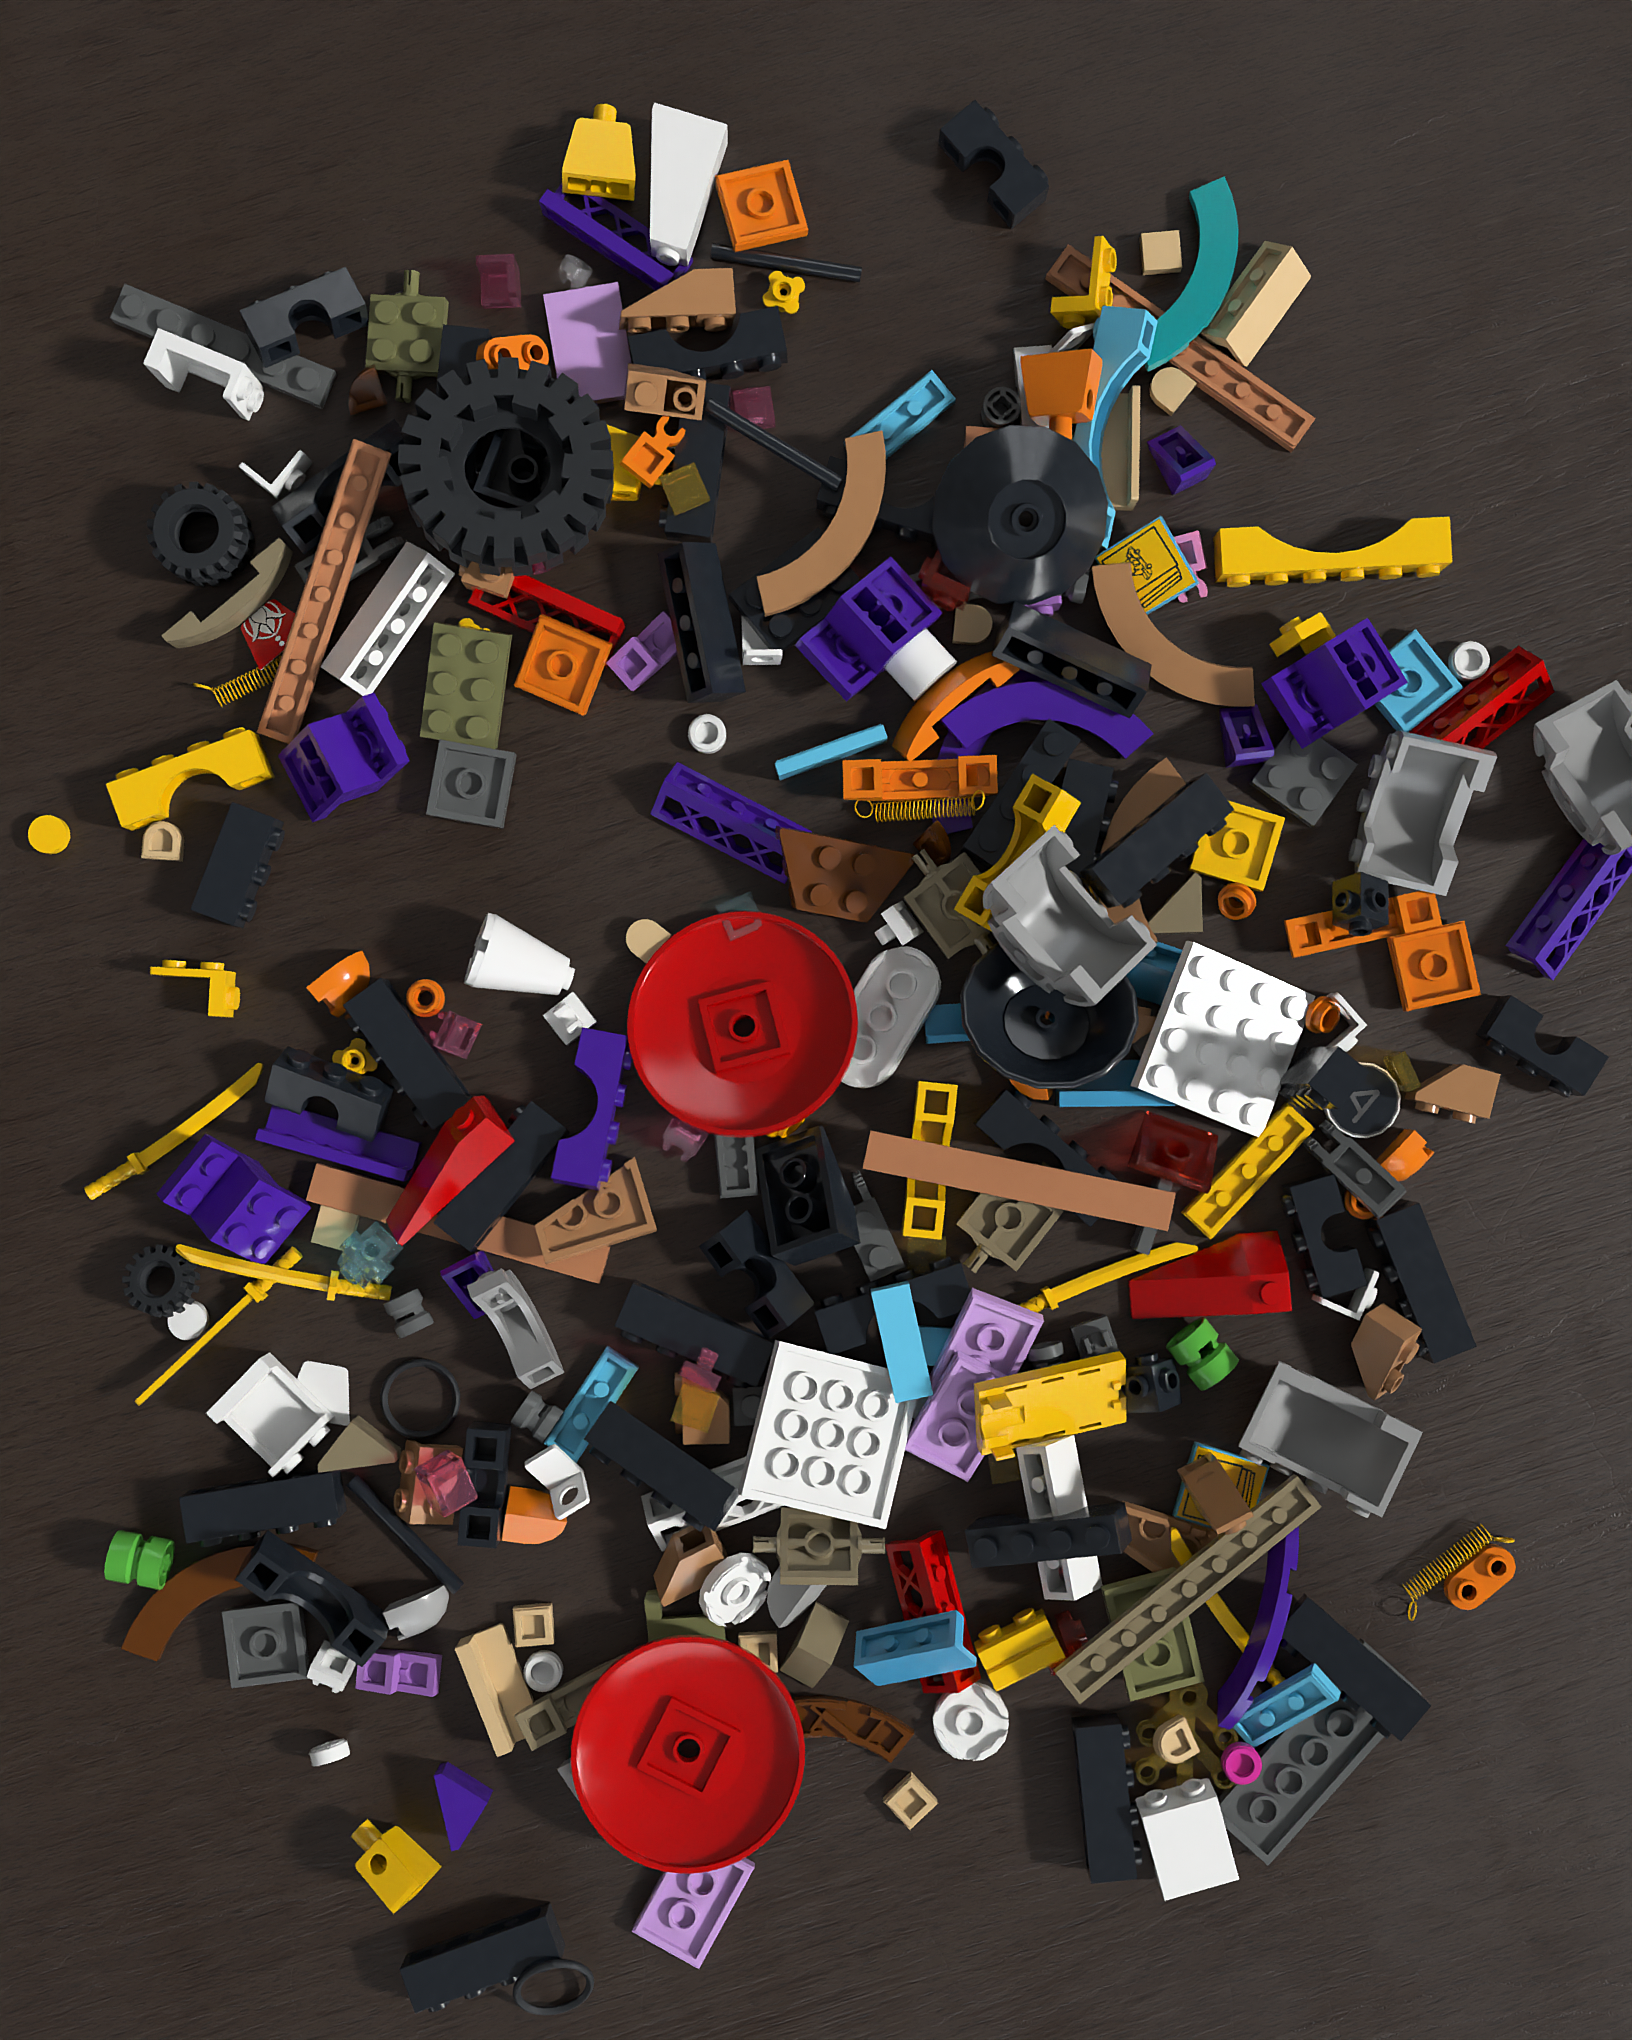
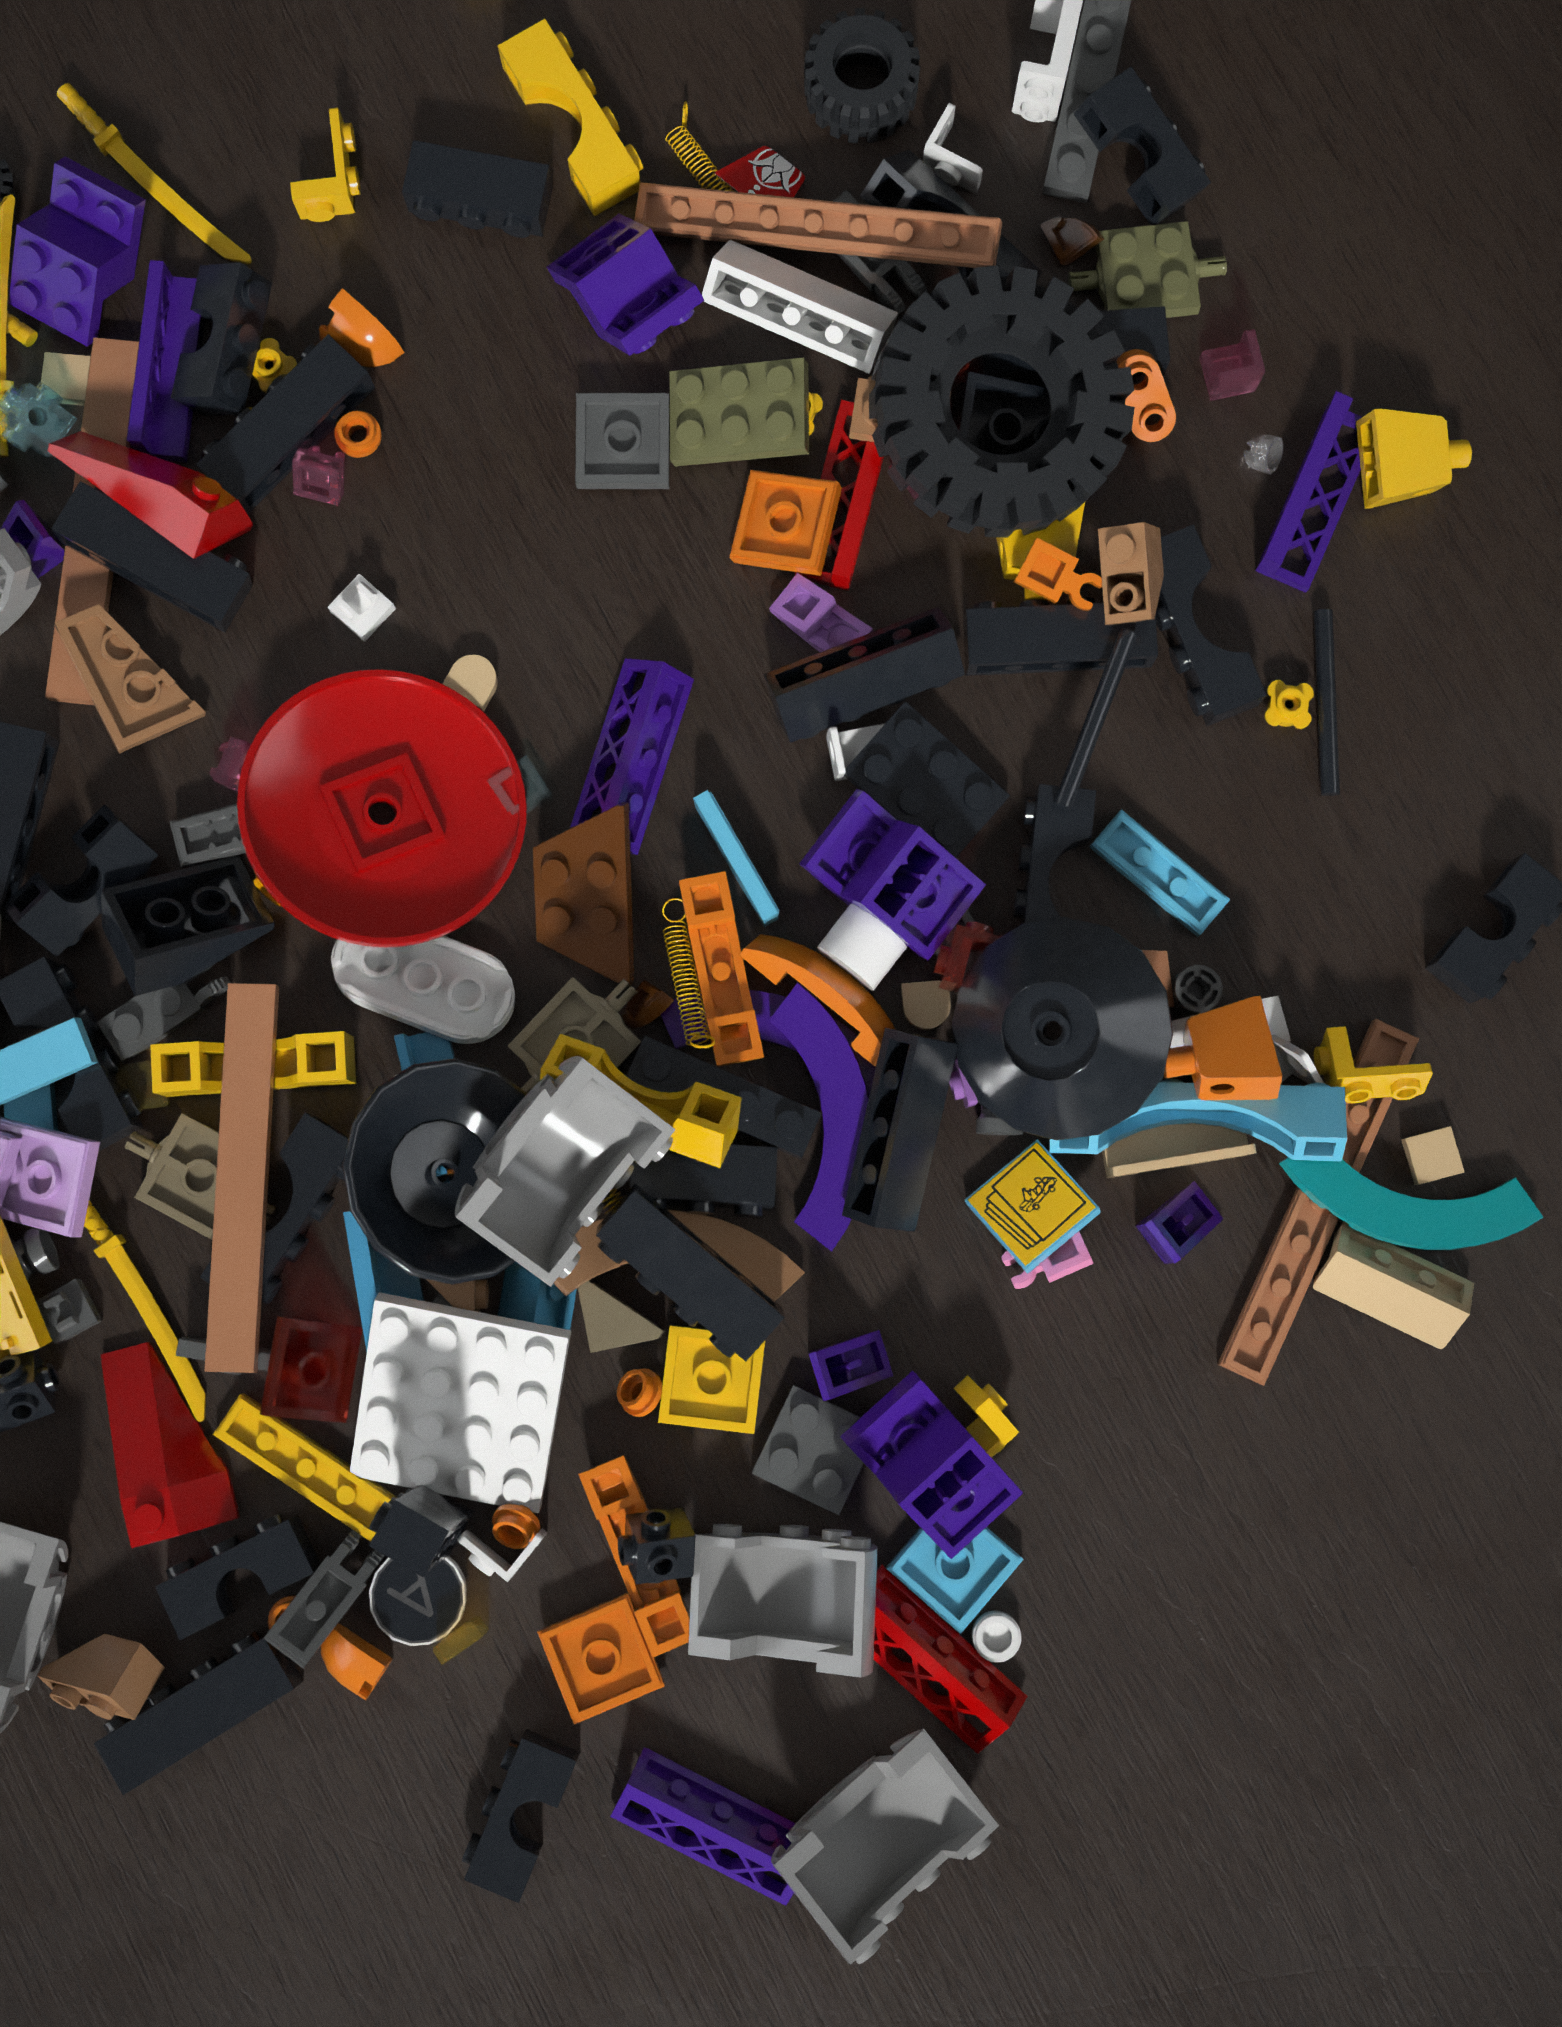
camera: 80 degrees right, 5 degrees down
(163, 842) = (493, 102): tan tile -> none
(194, 631) = (835, 164): dark tan slope -> none
(516, 961) = (415, 527): white cone -> none
(582, 1158) = (189, 648): dark purple arch -> none
(589, 341) = (1183, 483): lavender tile -> none
(683, 173) = (1399, 557): white slope -> none
(684, 489) = (1020, 621): clear yellow tile -> none
(693, 300) = (1254, 593): medium nougat slope -> none
(707, 734) = (734, 709): white tile -> none
(755, 406) = (1141, 695): clear pink tile -> none
(761, 205) = (1388, 658): orange plate -> none
(843, 537) = (999, 823): medium nougat tile -> none
(899, 924) = (539, 979): white tile -> none
(1170, 388) = (1265, 1198): tan tile -> none
(1170, 664) = (922, 1253): medium nougat tile -> none
(1210, 1364) = (53, 1459): bright green wheel -> none
(1253, 554) = (1076, 1333): yellow arch -> none
(1362, 1298) = (165, 1639): white bracket -> none
(1458, 1089) = (448, 1716): medium nougat slope -> none

